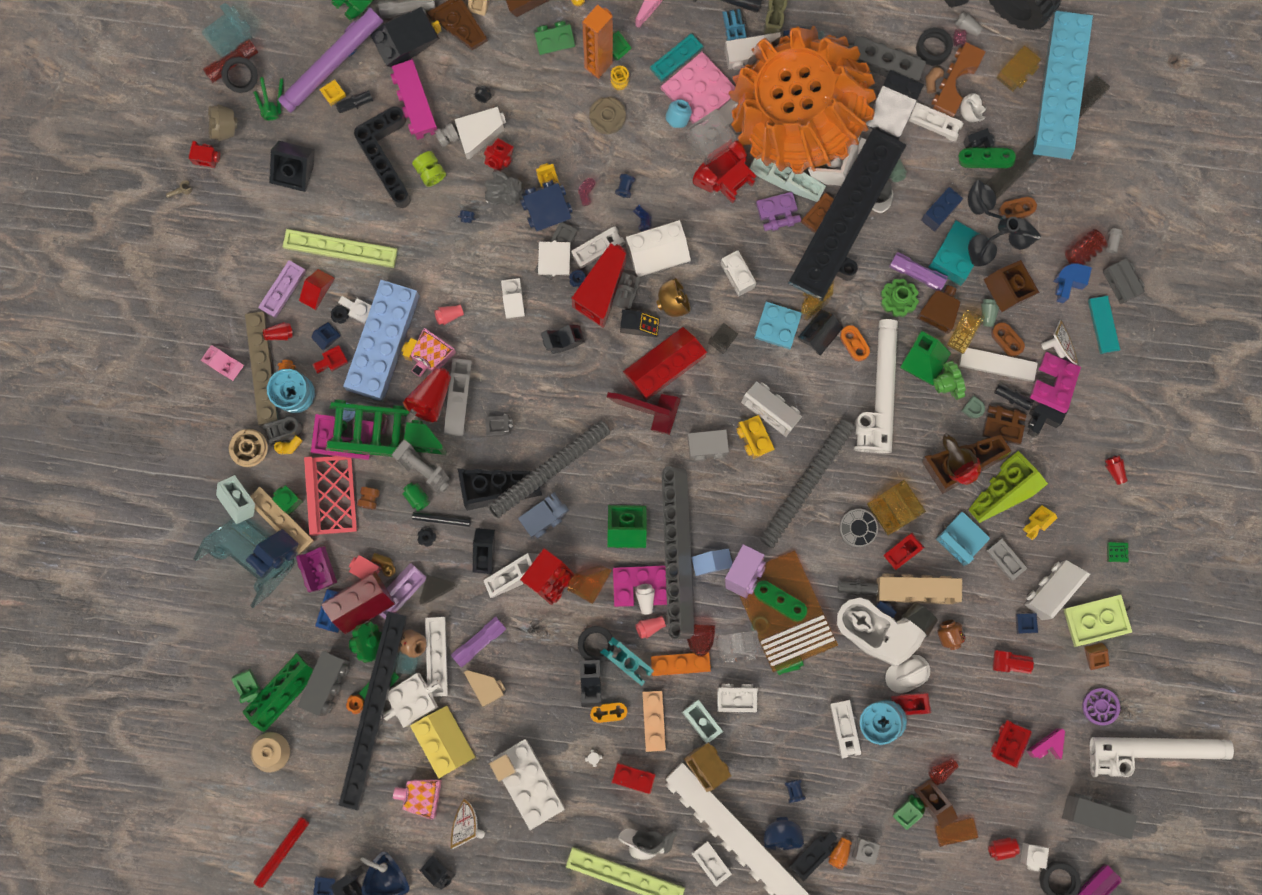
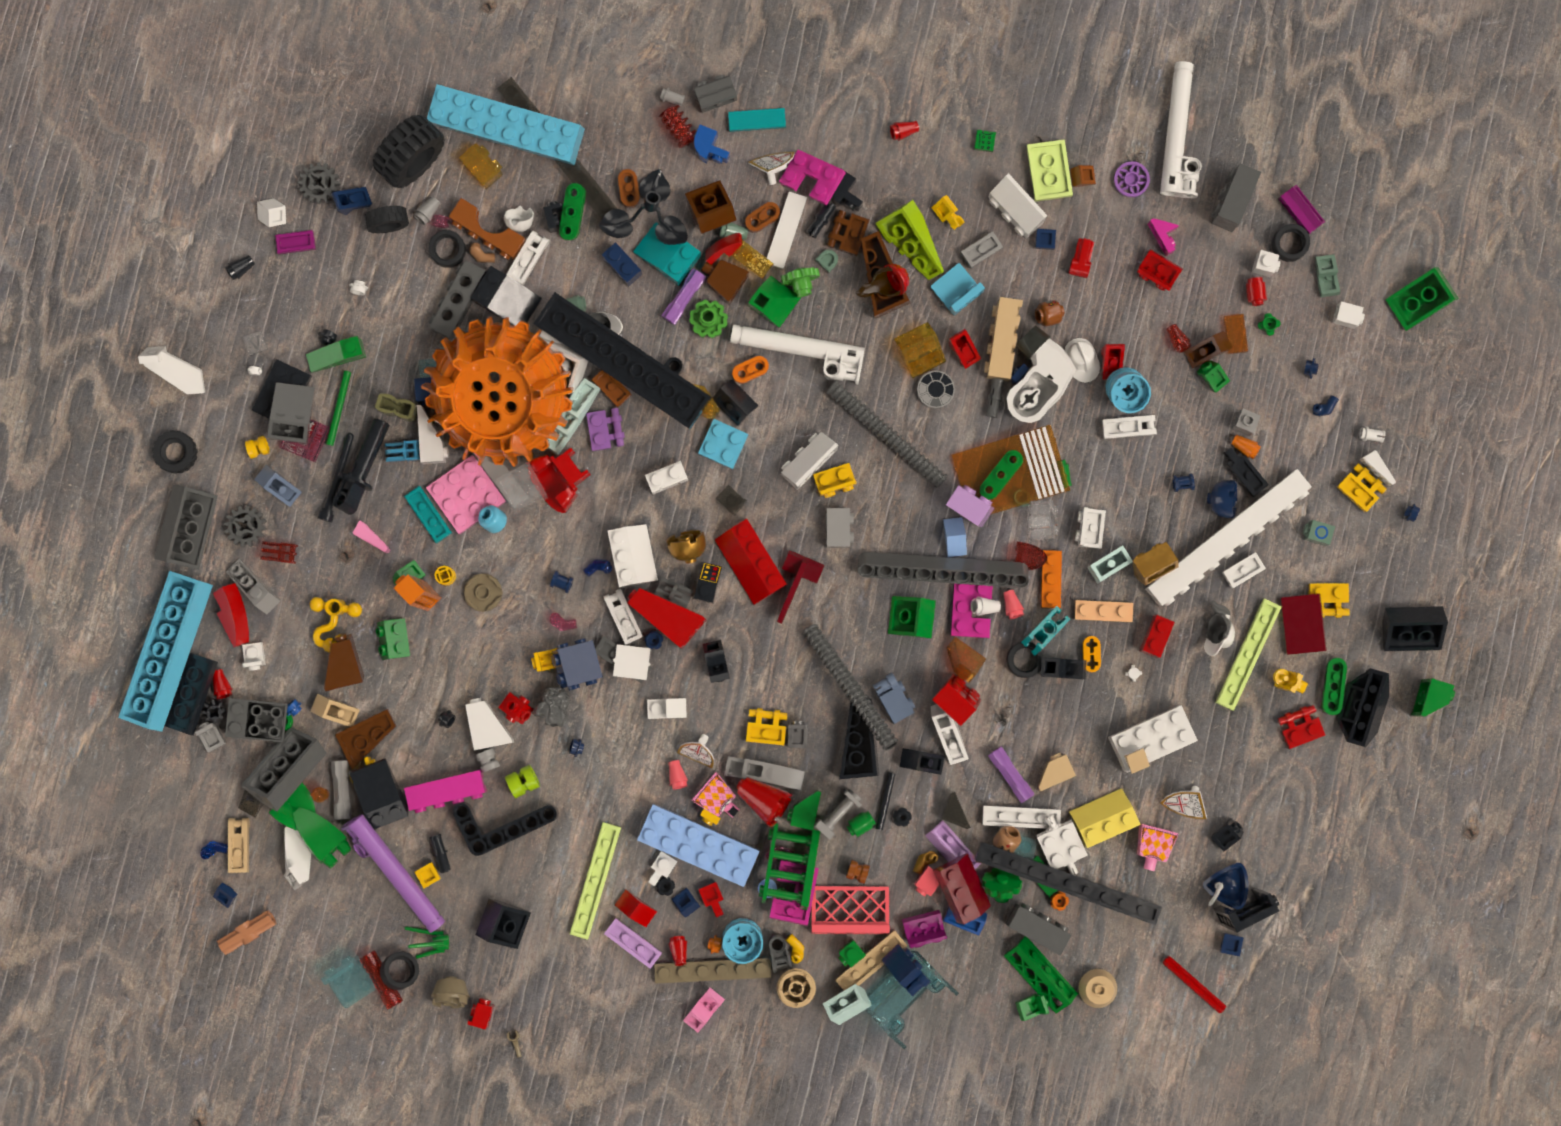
camera: 80 degrees left, 5 degrees up
(473, 329) = (698, 751): none -> shield
(497, 395) = (766, 733): none -> yellow plate
(972, 872) = (1268, 318): none -> green plate
(973, 305) = (725, 245): none -> red slope

